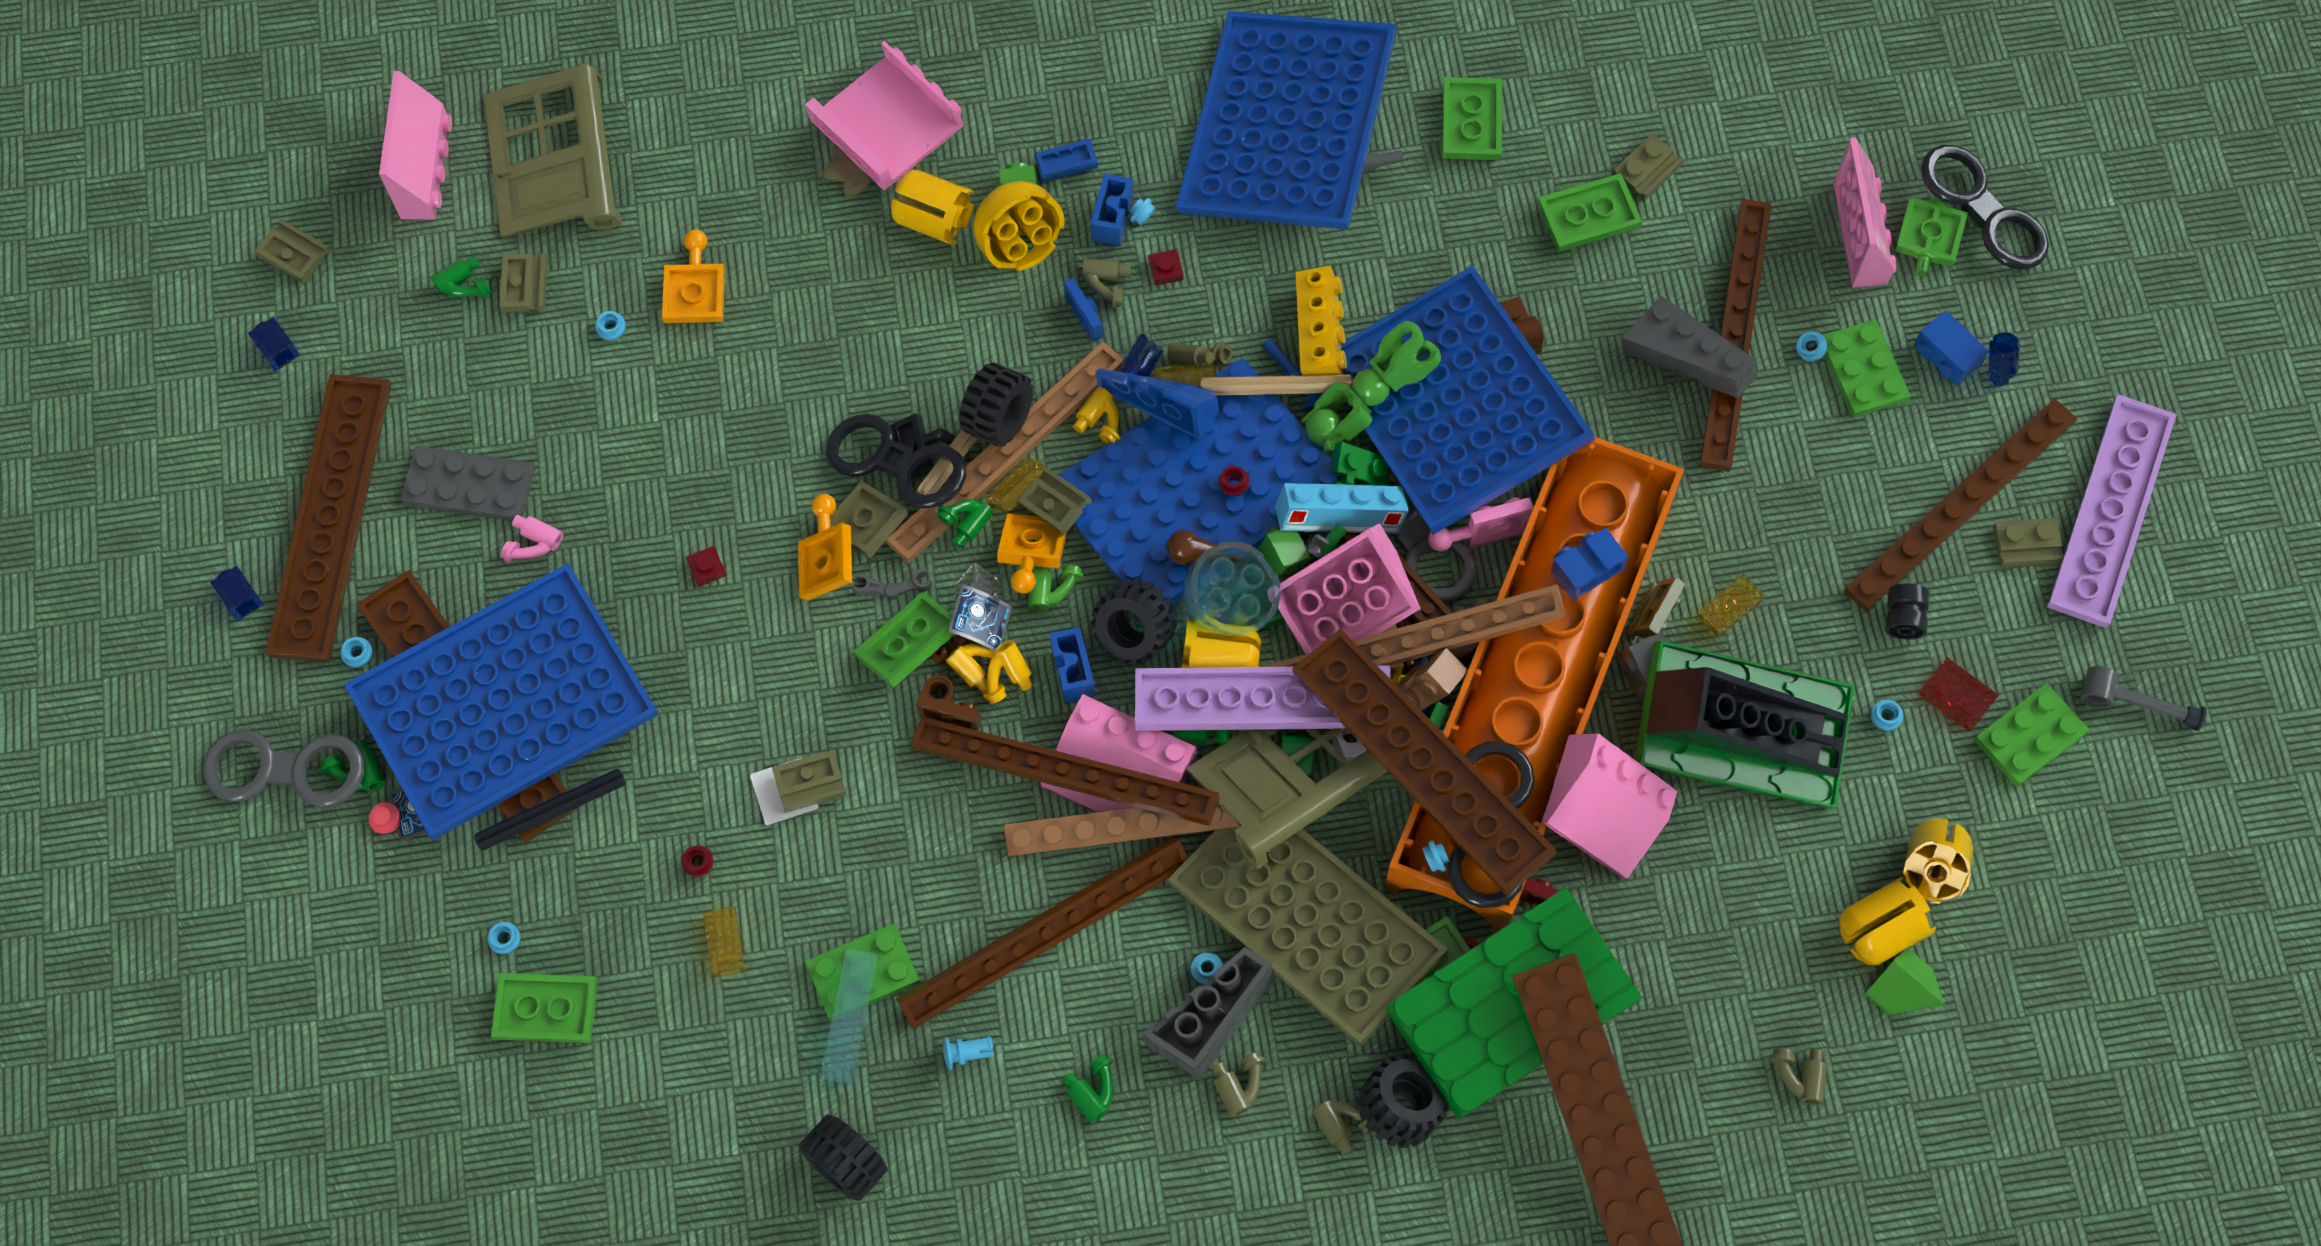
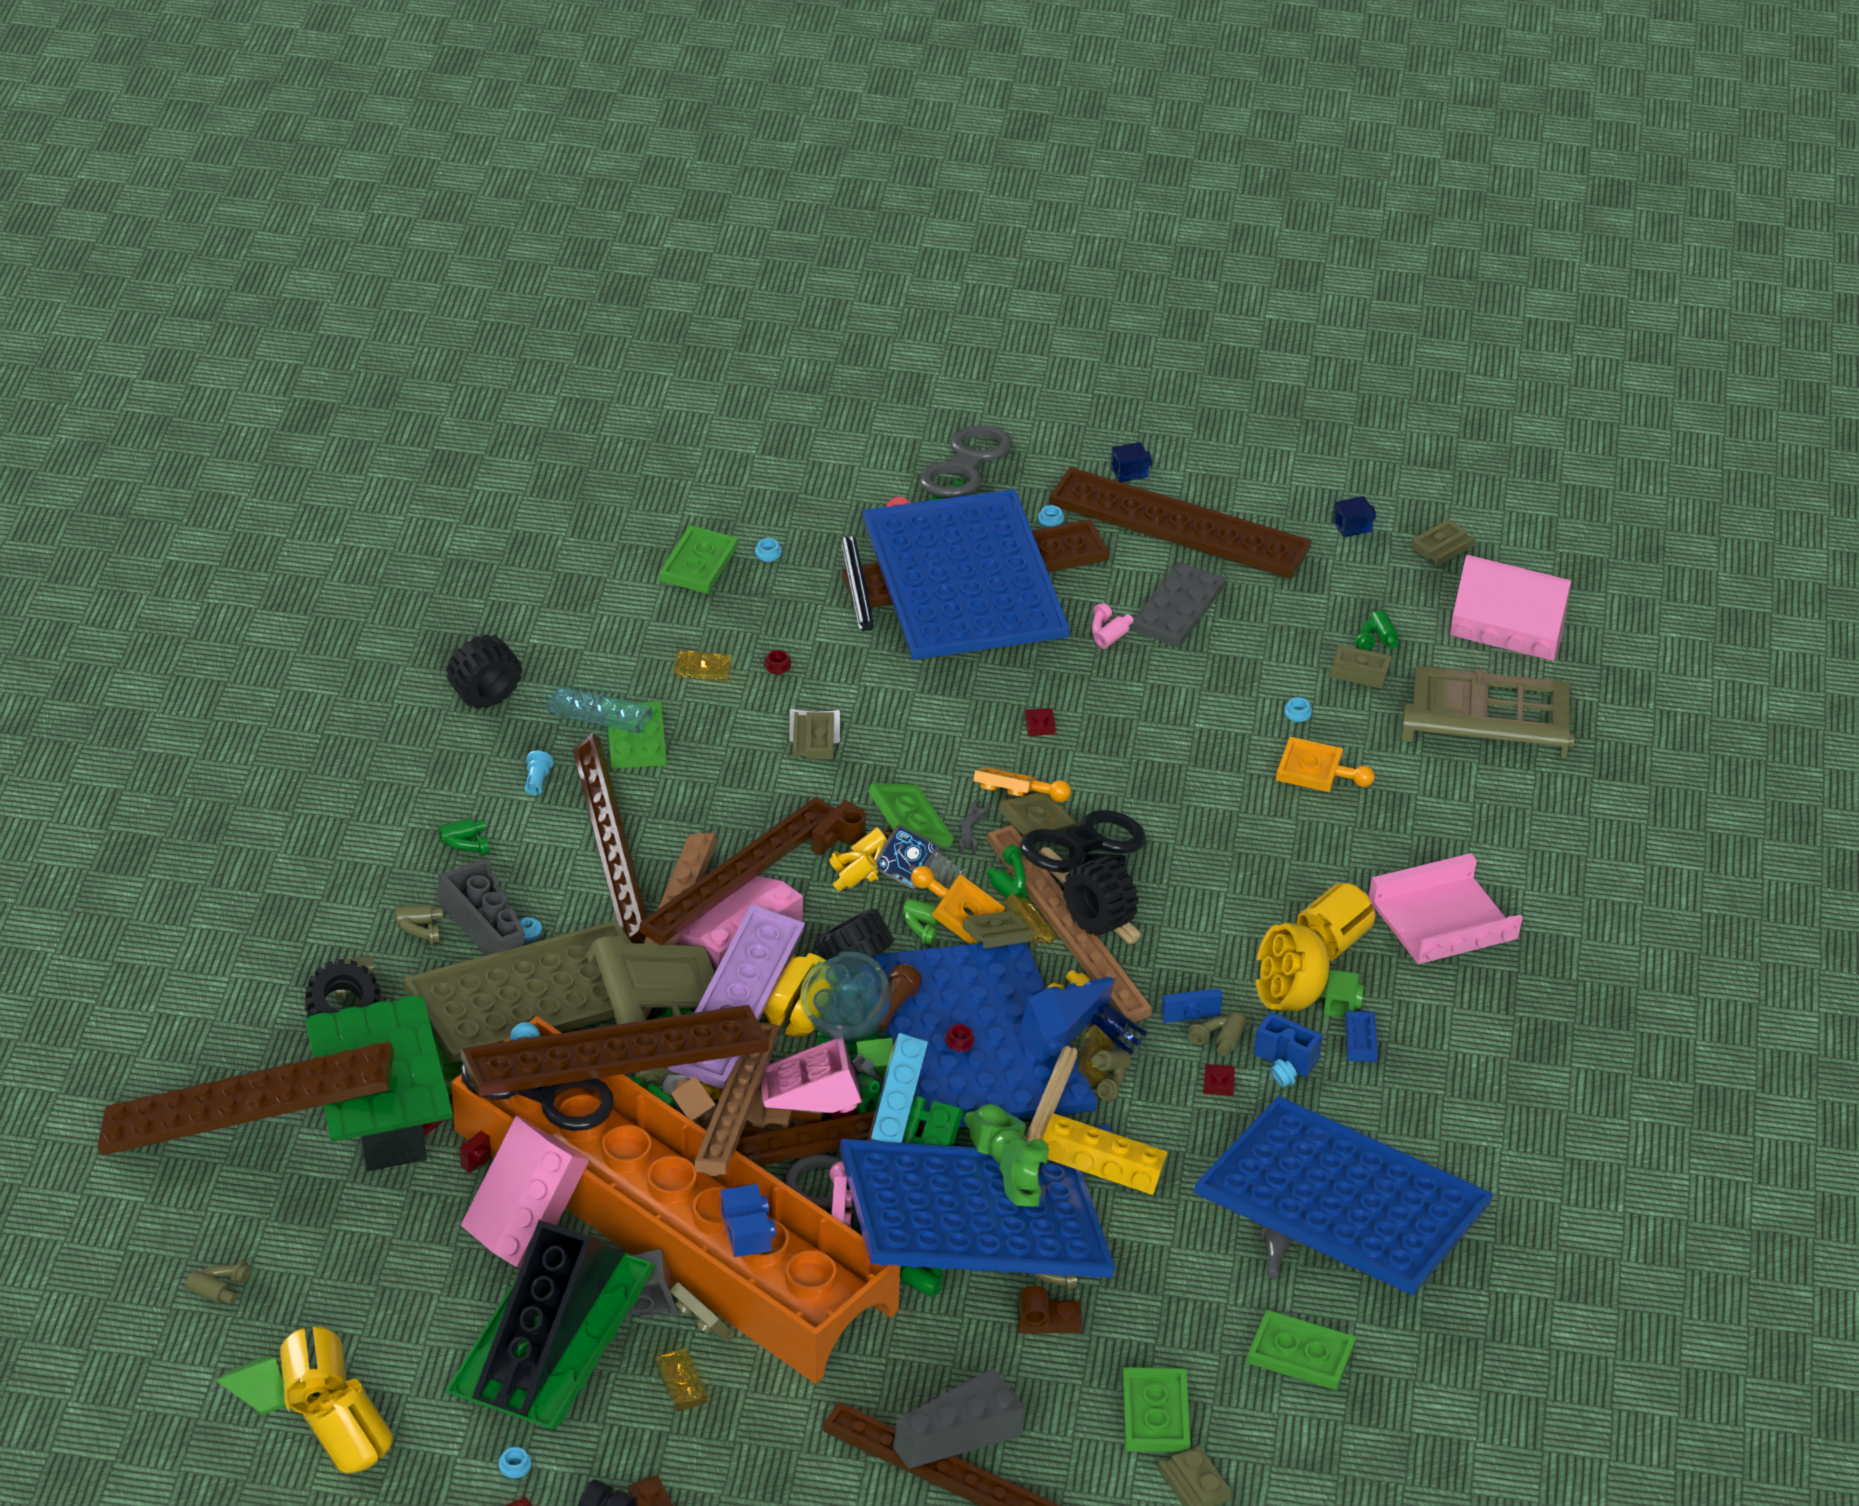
camera: 105 degrees right, 25 degrees down
(1072, 664) = (832, 905): blue brick -> none

